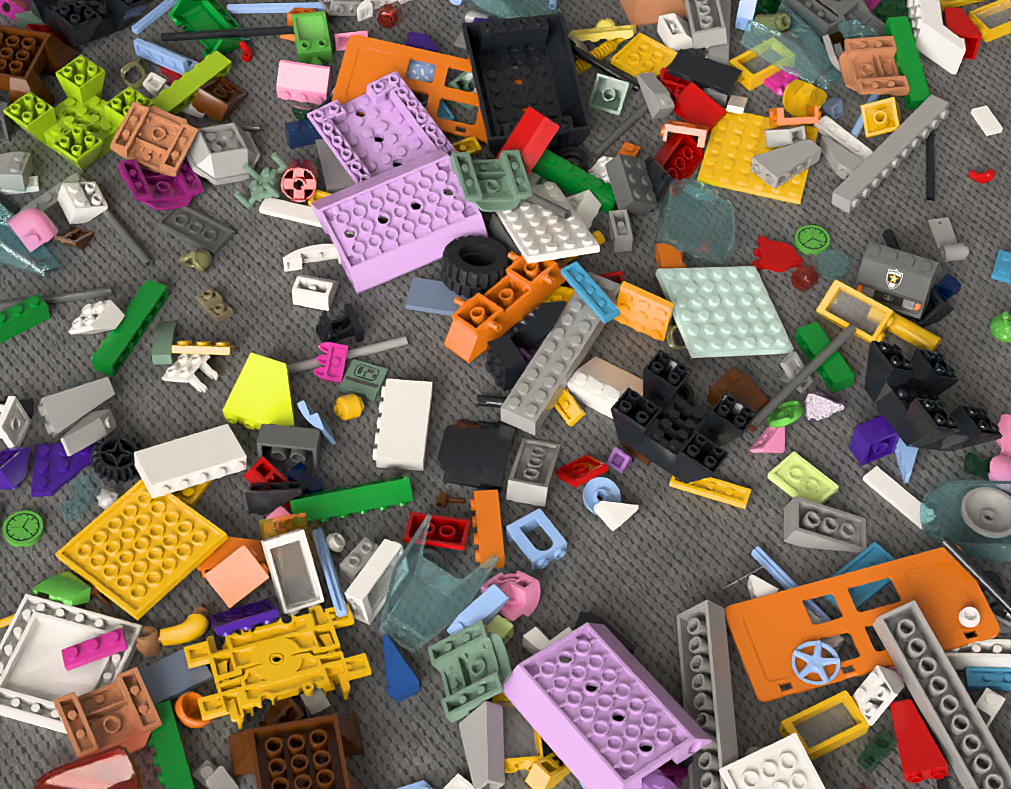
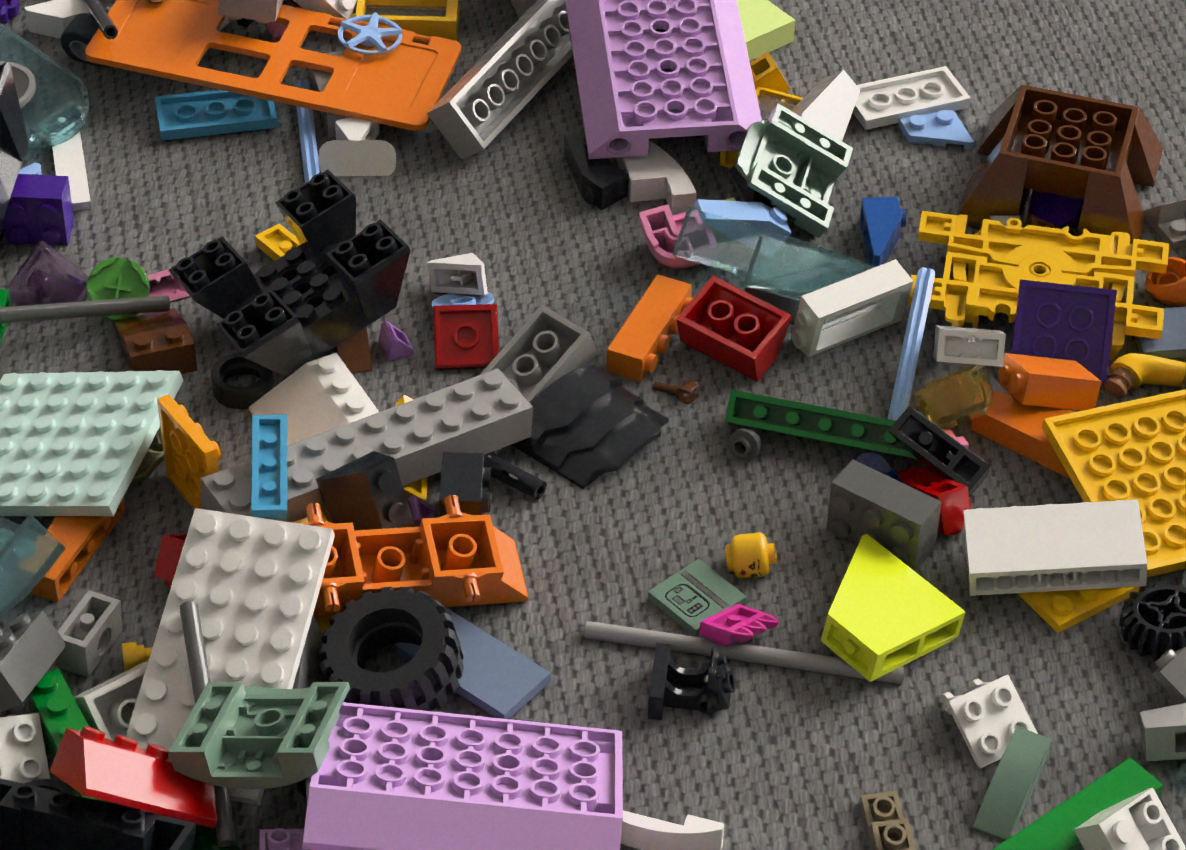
camera: 150 degrees left, 10 degrees down
(203, 347) = (951, 727): yellow plate -> none
(314, 292) = (692, 759): white slope -> none
(317, 422) = (821, 532): light blue slope -> none
(335, 542) = (877, 395): white plate -> none
(357, 559) = (857, 353): light grey brick -> none
(403, 424) = (677, 499): white brick -> none
(539, 559) = (594, 312): light blue panel -> none
(793, 366) = (44, 341): light grey slope -> none
(802, 480) = (174, 223): yellowish green plate -> none
(823, 527) = (210, 170): light grey slope -> none

